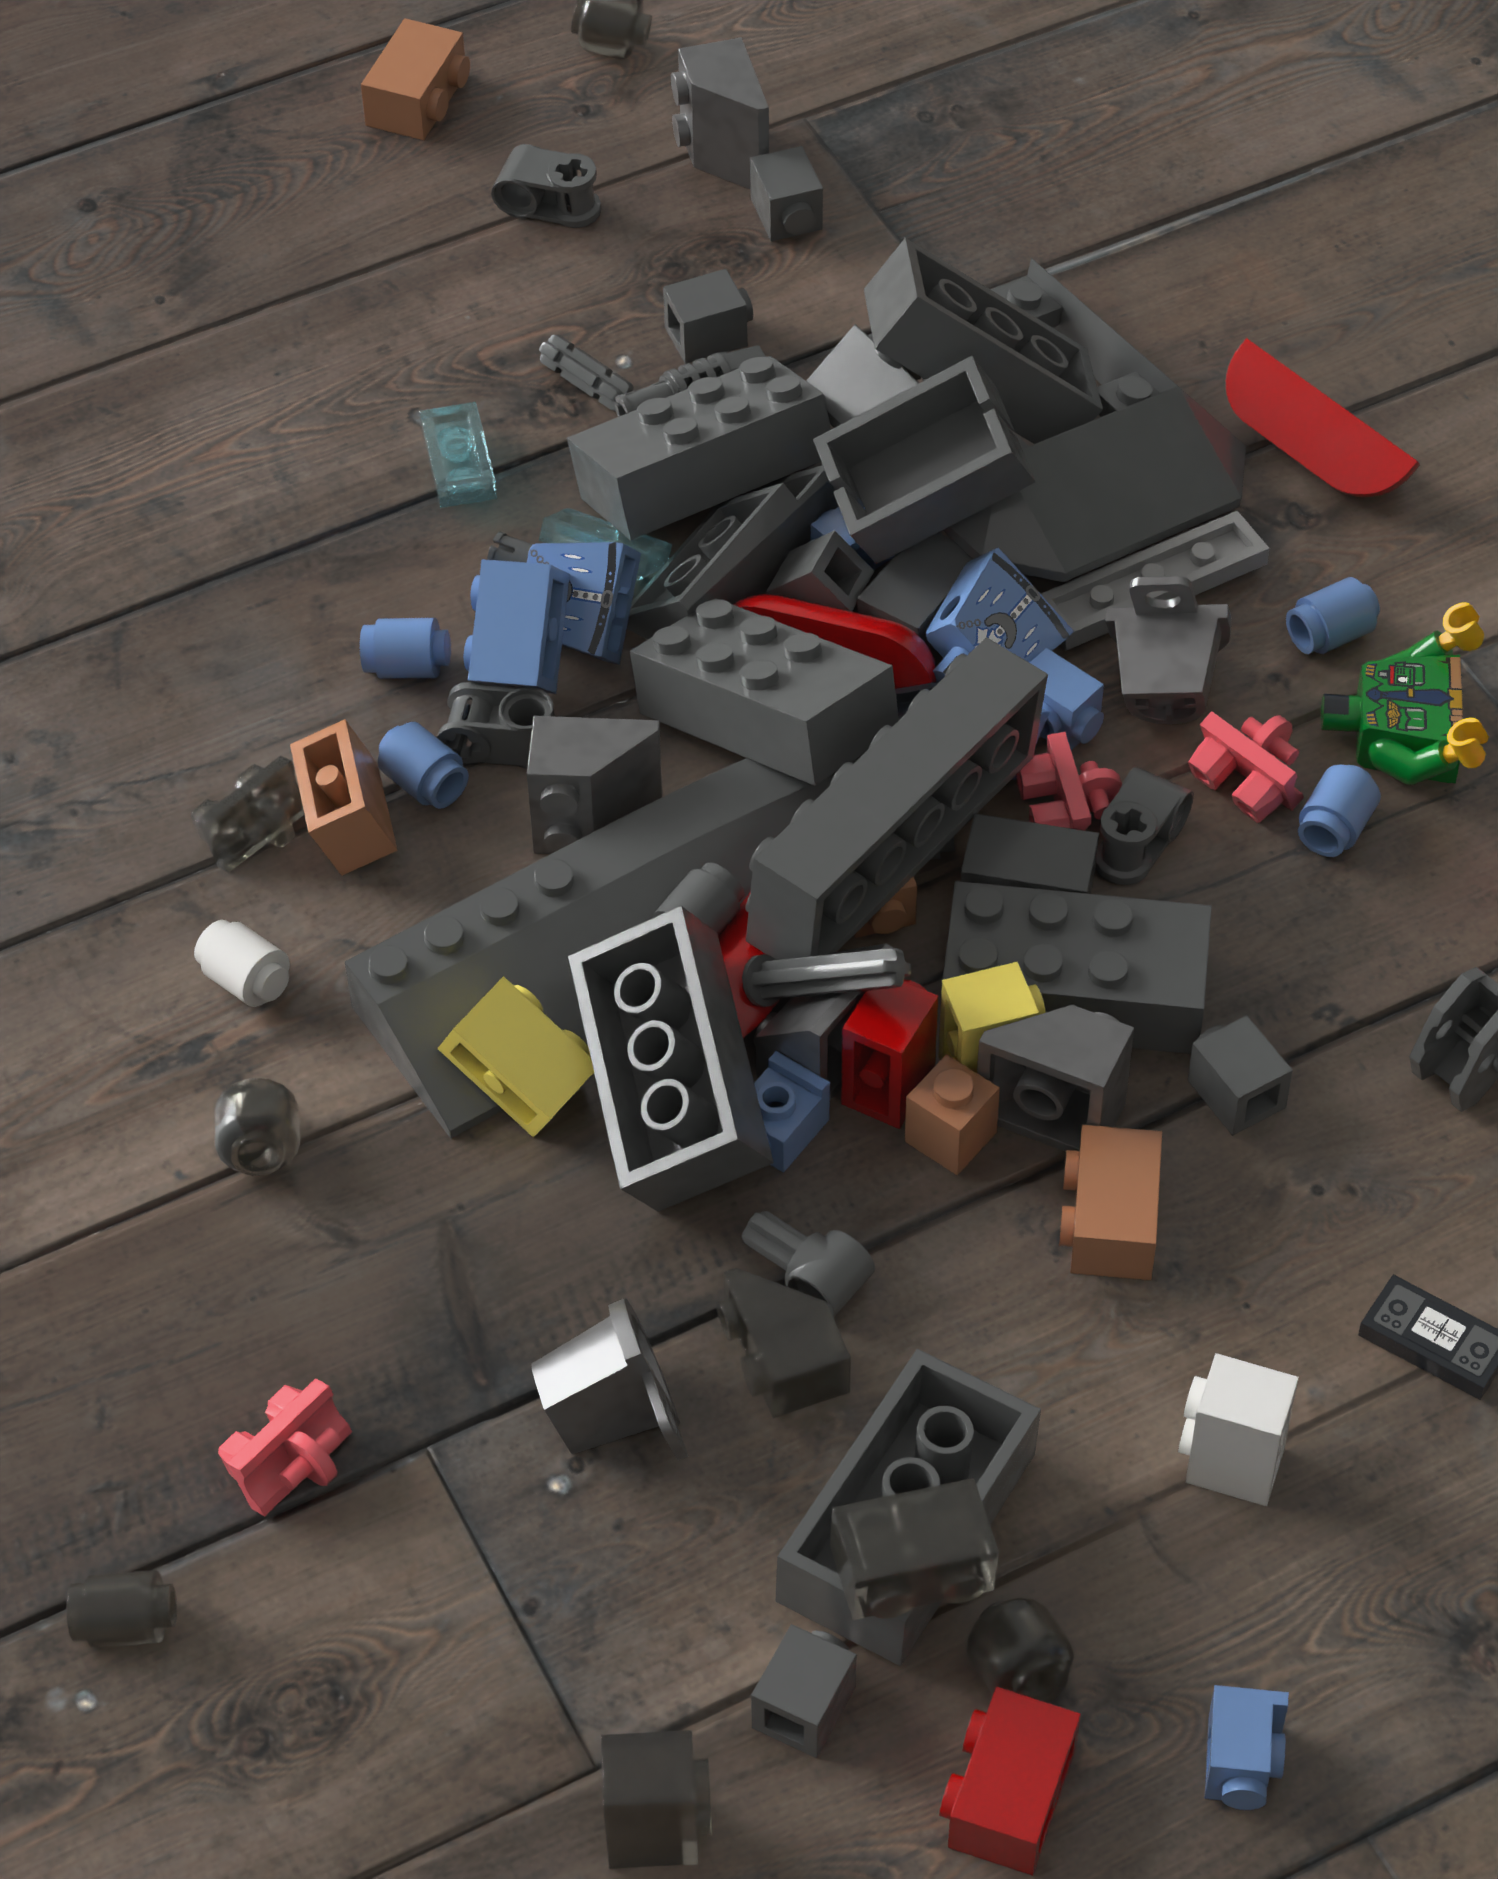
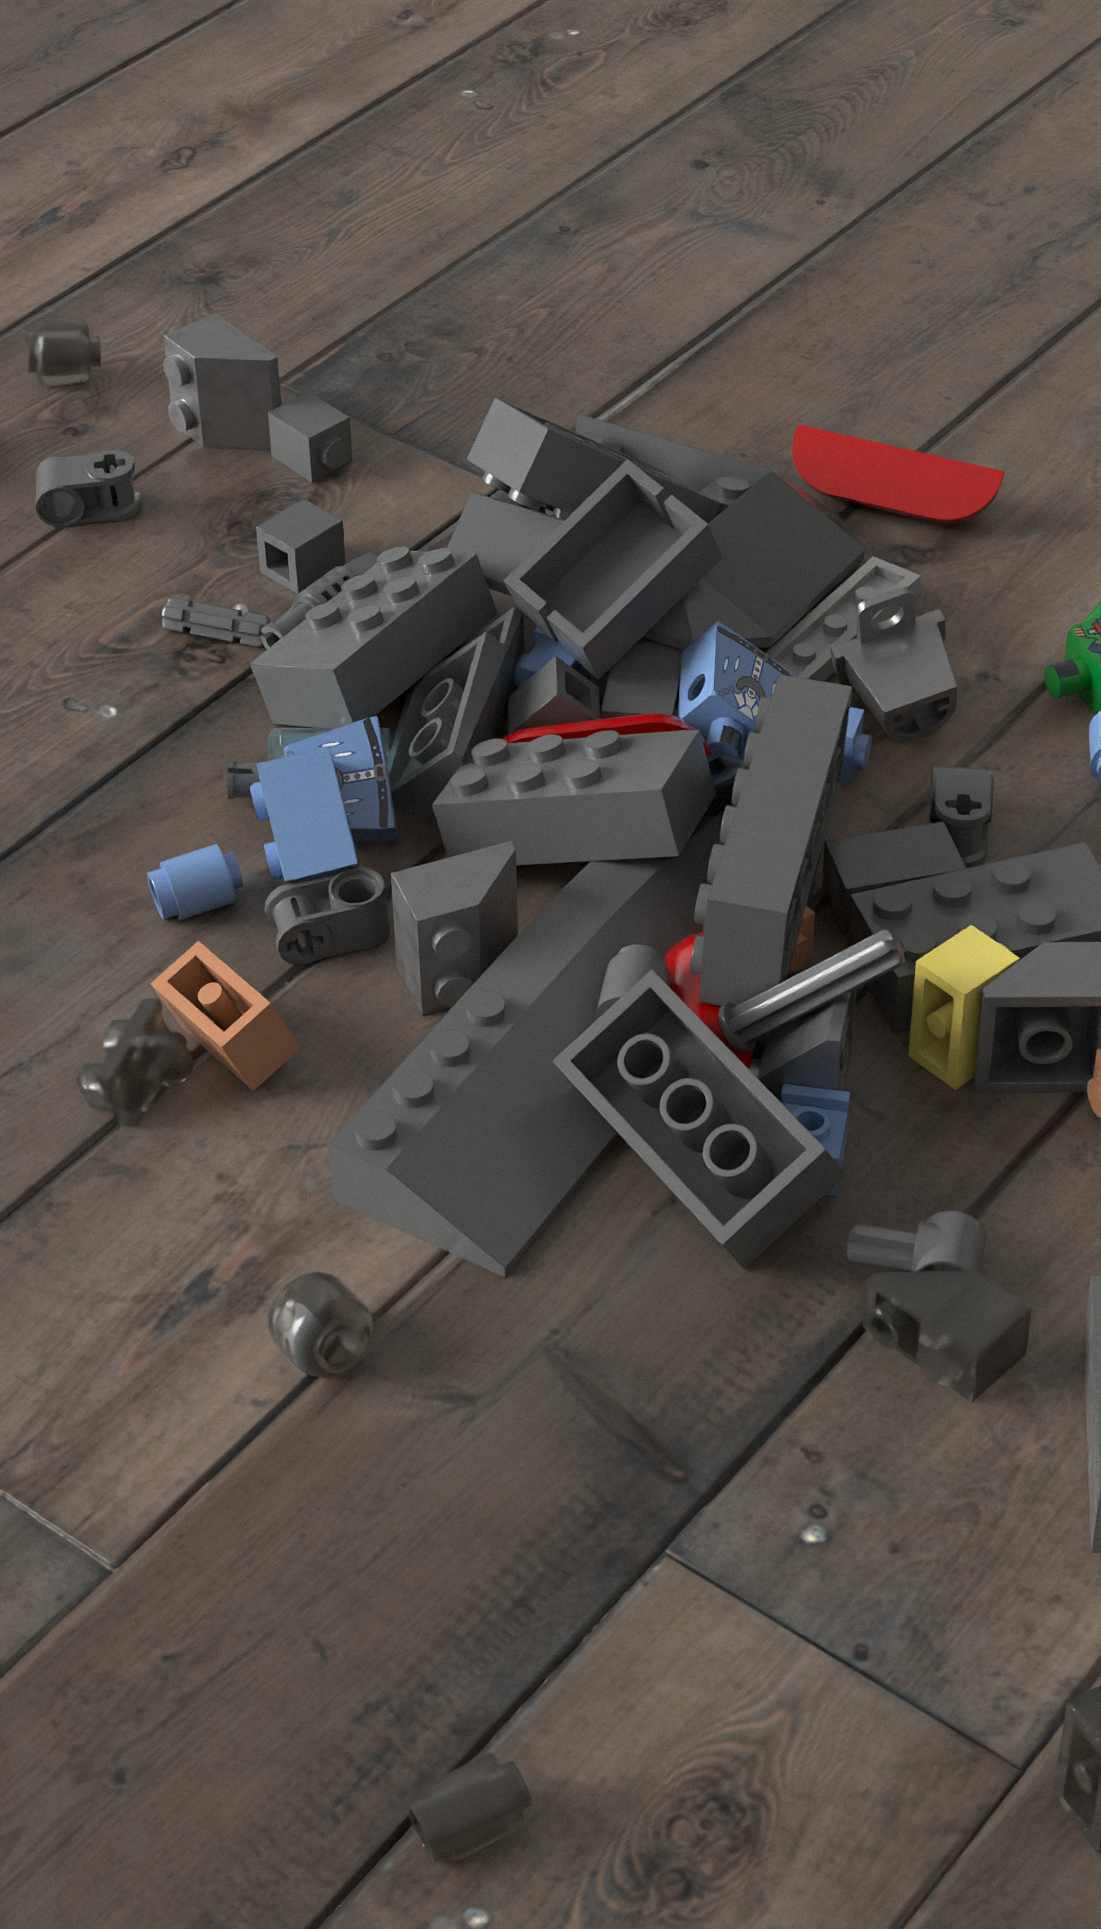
camera: 25 degrees left, 10 degrees down
(242, 962) = (210, 1190): white brick -> none
(289, 1448) = (549, 1594): coral hips -> none
(422, 765) = (280, 969): medium blue brick -> none
(458, 454) = (140, 717): clear light blue plate -> none
(519, 1055) = (545, 1171): light yellow brick -> none
(607, 1385) = (826, 1416): flat silver container -> none
(888, 1050) = (886, 1050): red brick -> none
(951, 1114) = (967, 1087): nougat brick -> none
(1073, 794) = (880, 800): coral hips -> none
(1267, 778) = (1021, 732): coral hips -> none
(1333, 616) = (1008, 610): medium blue brick -> none

